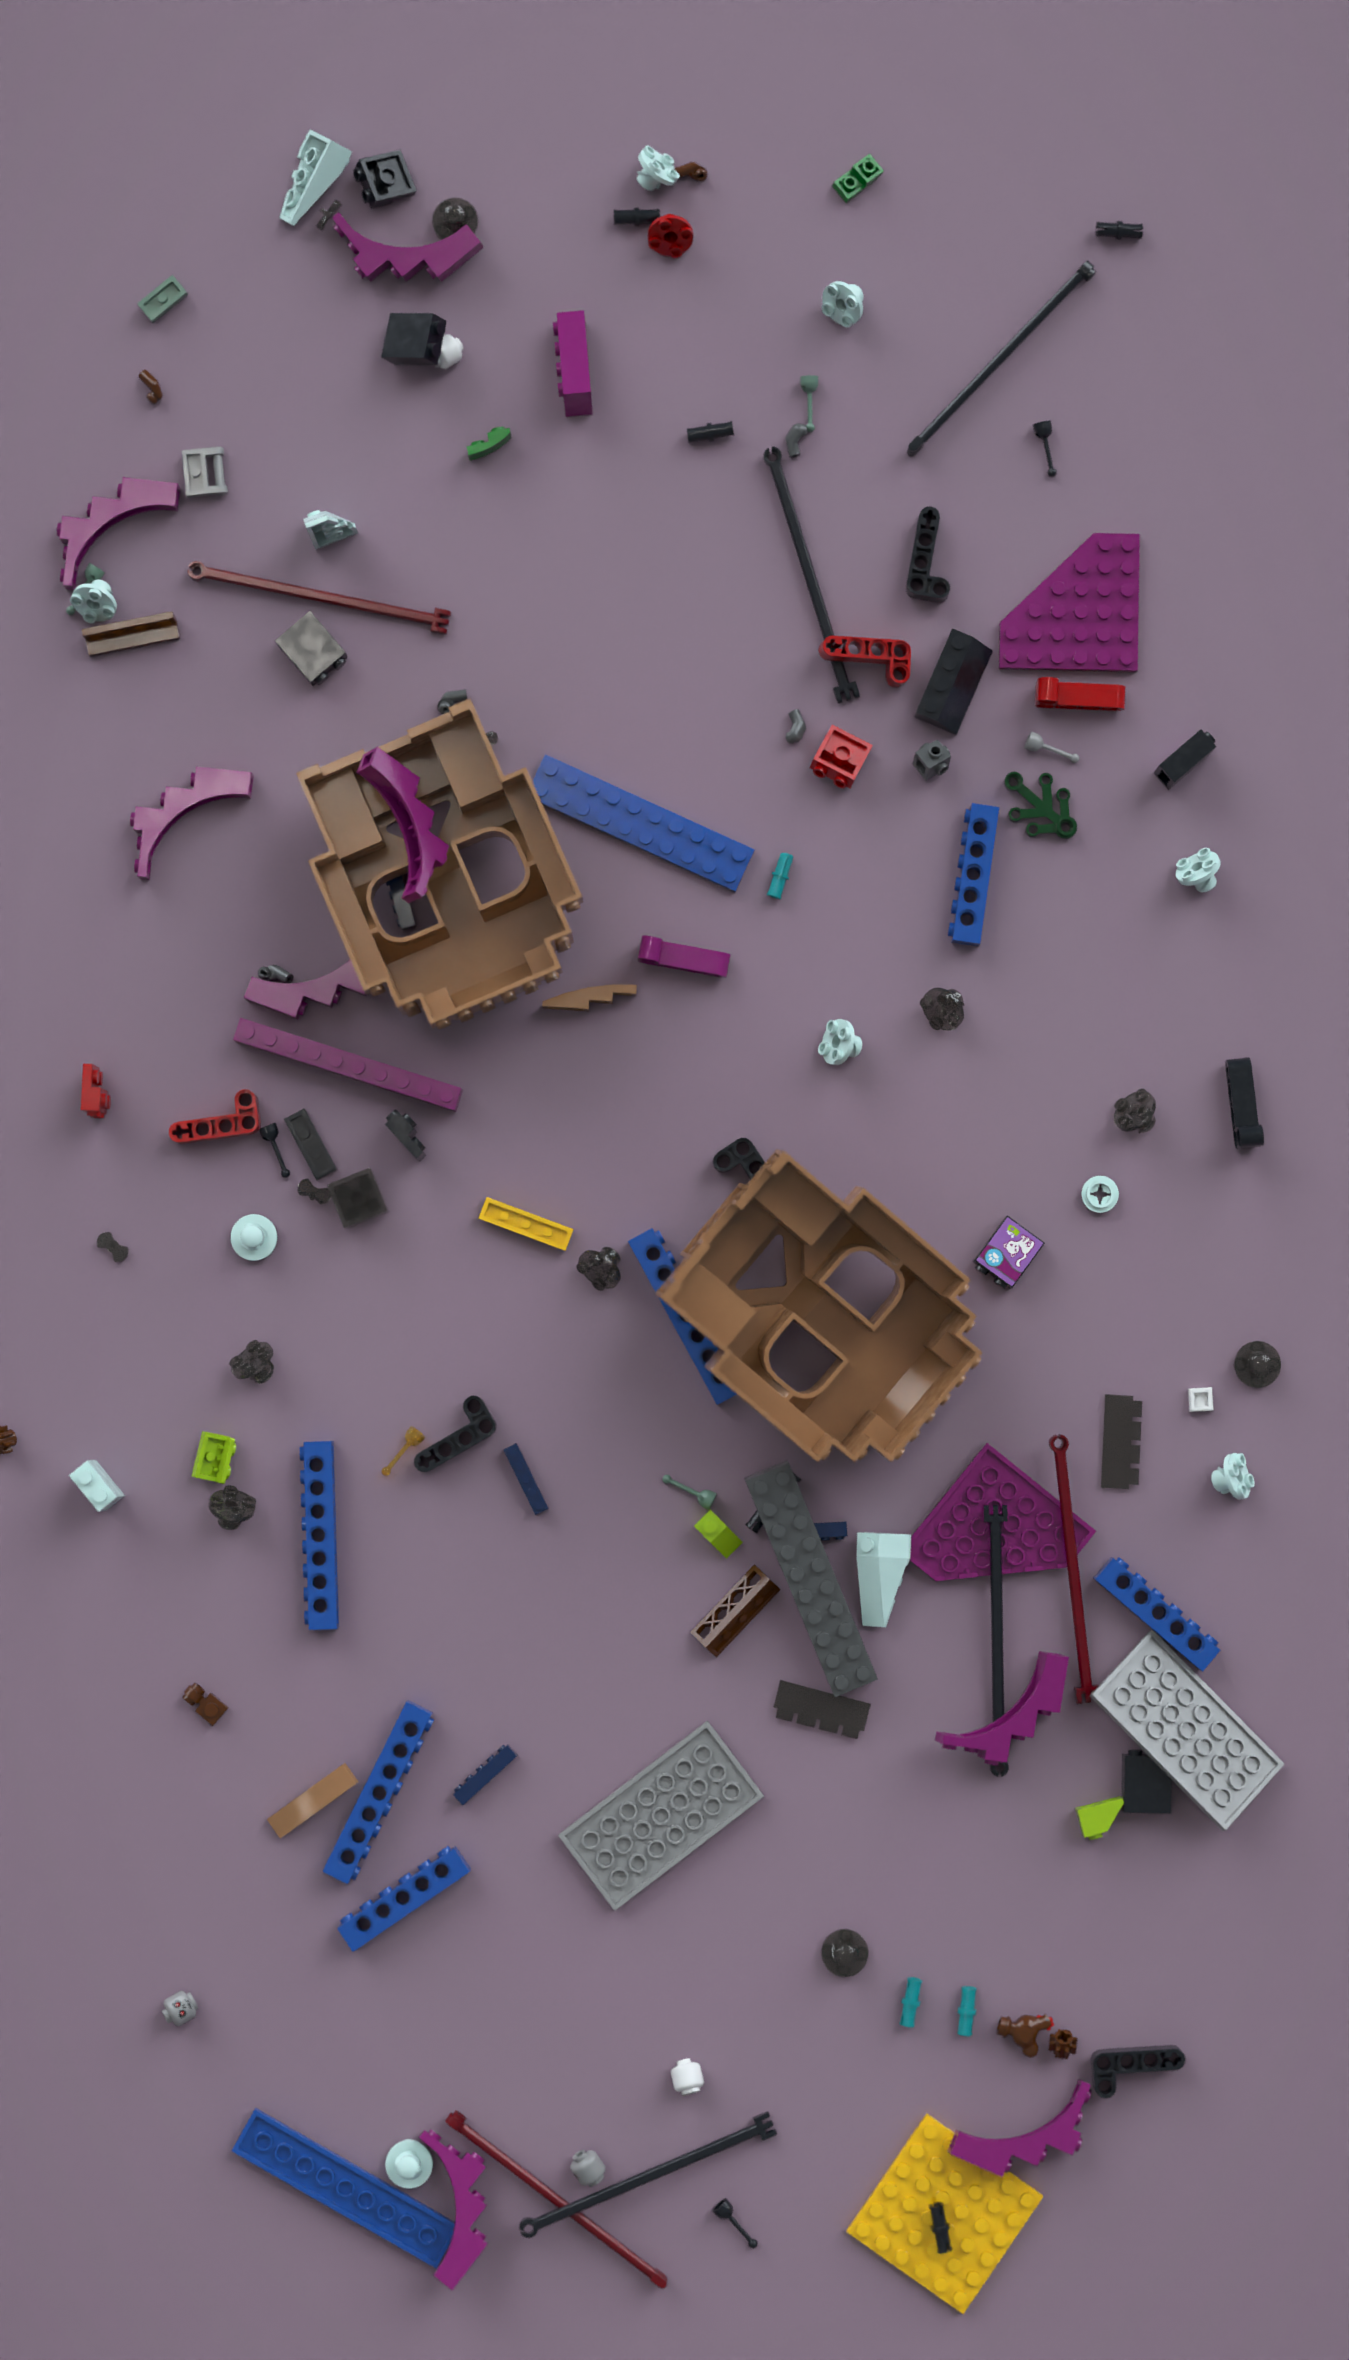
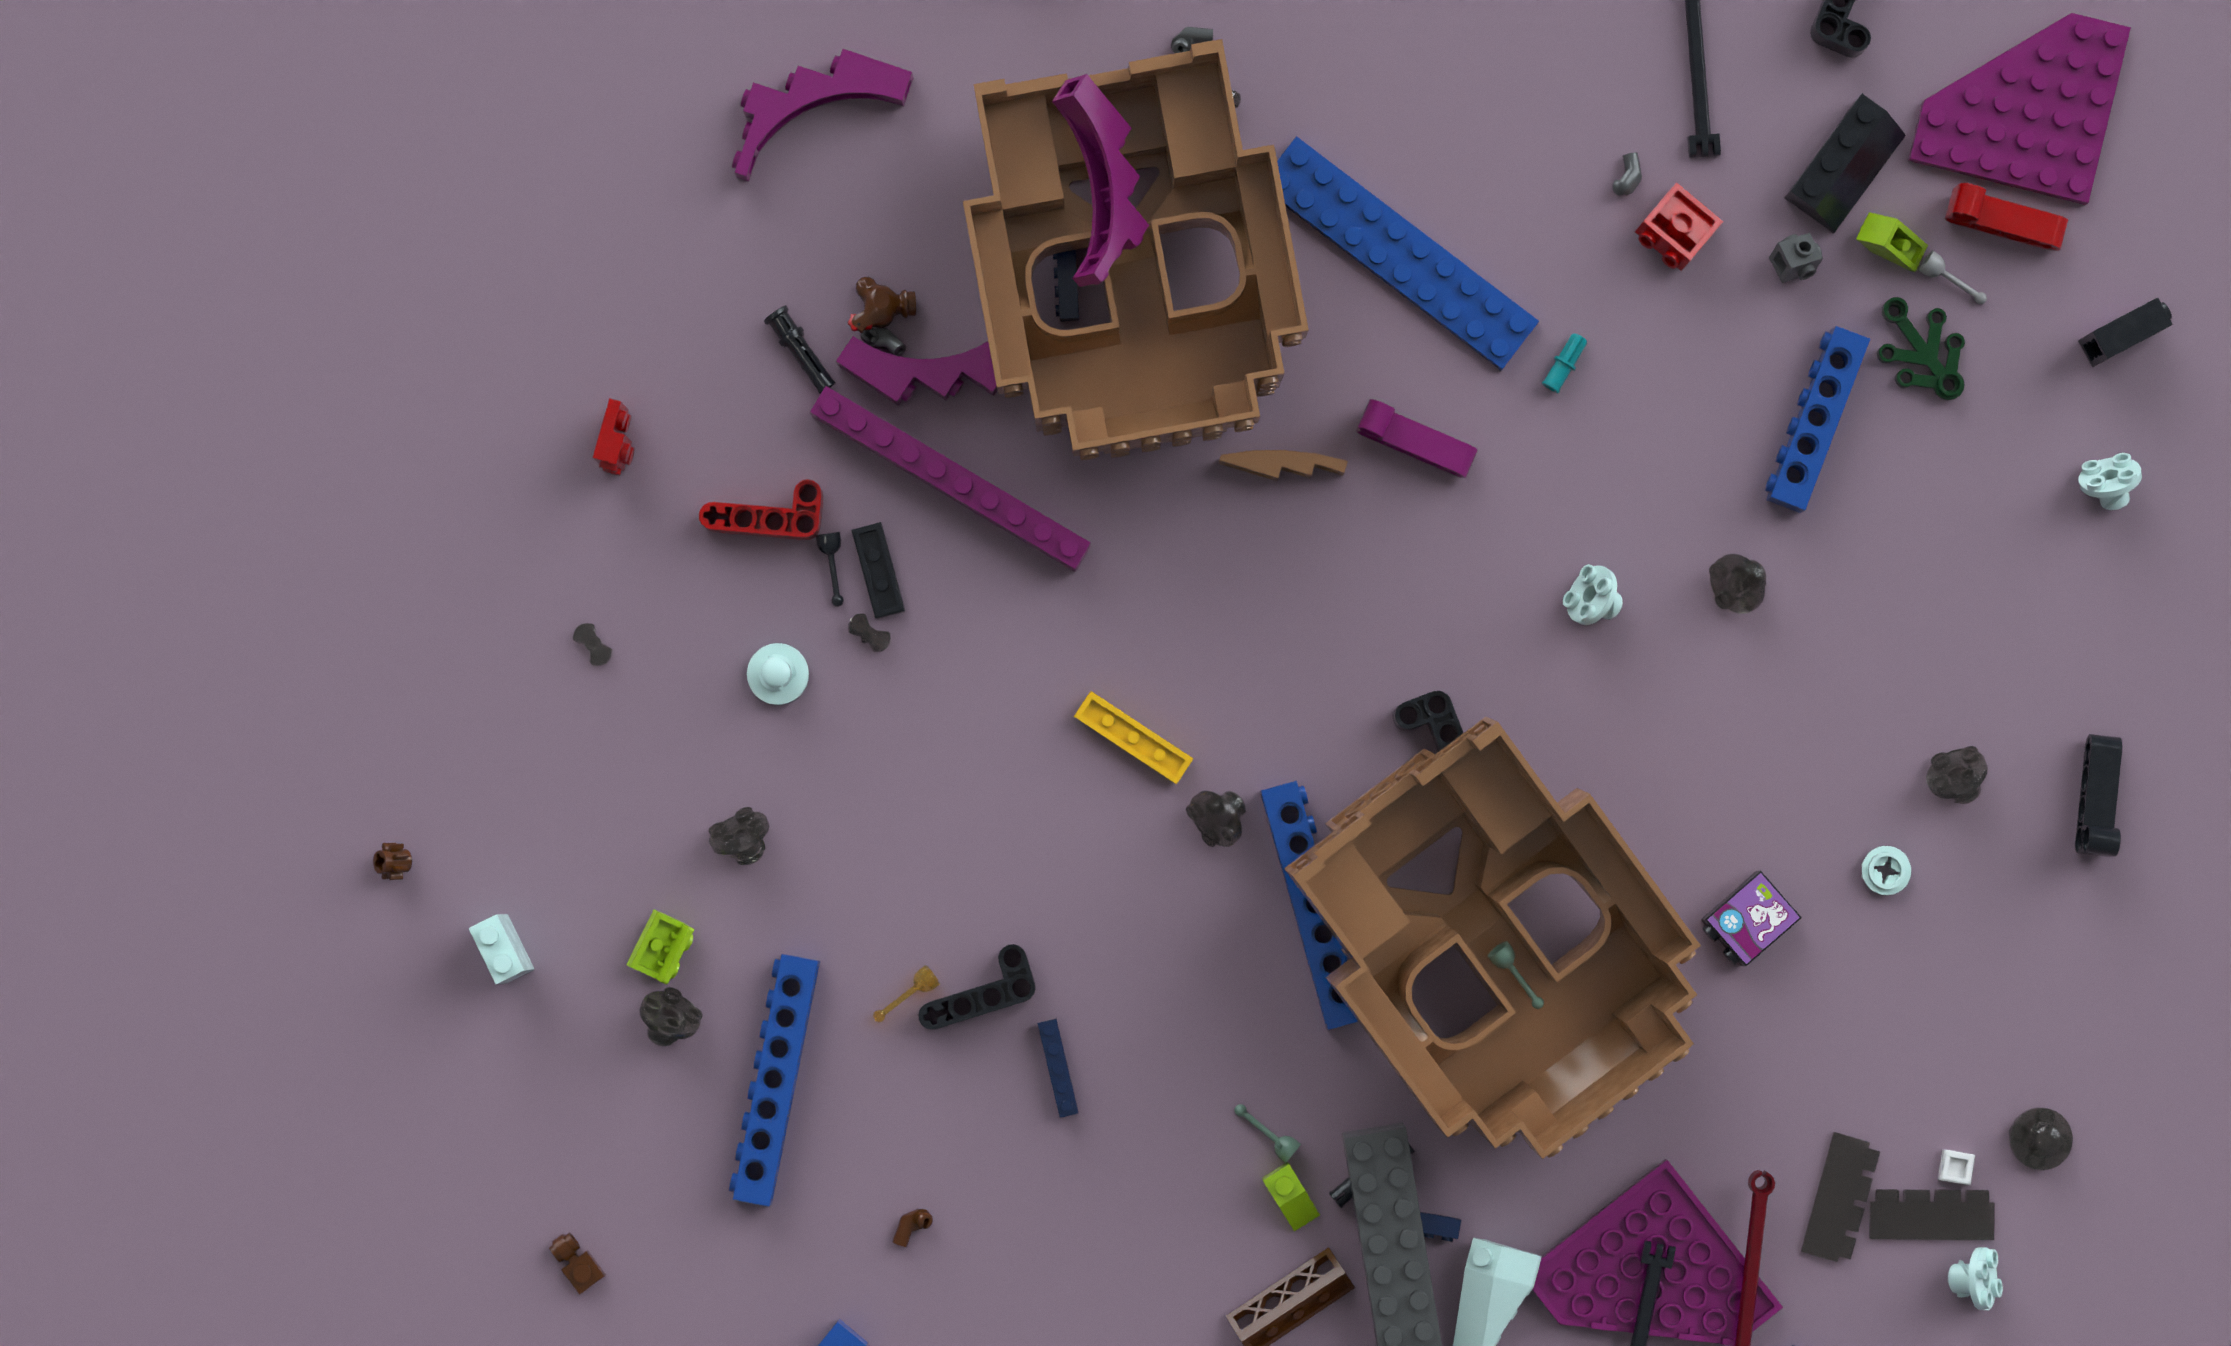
camera: 10 degrees right, 0 degrees up
(207, 987) = (791, 337): none -> black pin
(267, 949) = (880, 305): none -> reddish brown animal
(358, 1198) = (924, 654): clear smoke brick -> none
(404, 1130) = (1004, 577): black plate -> none
(443, 1617) = (909, 1223): none -> reddish brown arm
(831, 1321) = (1503, 957): none -> sand green hinge
(865, 655) = (1740, 103): red beam -> none
(1000, 731) = (1892, 241): none -> lime slope
(1187, 1443) = (1938, 1220): none -> clear smoke windscreen

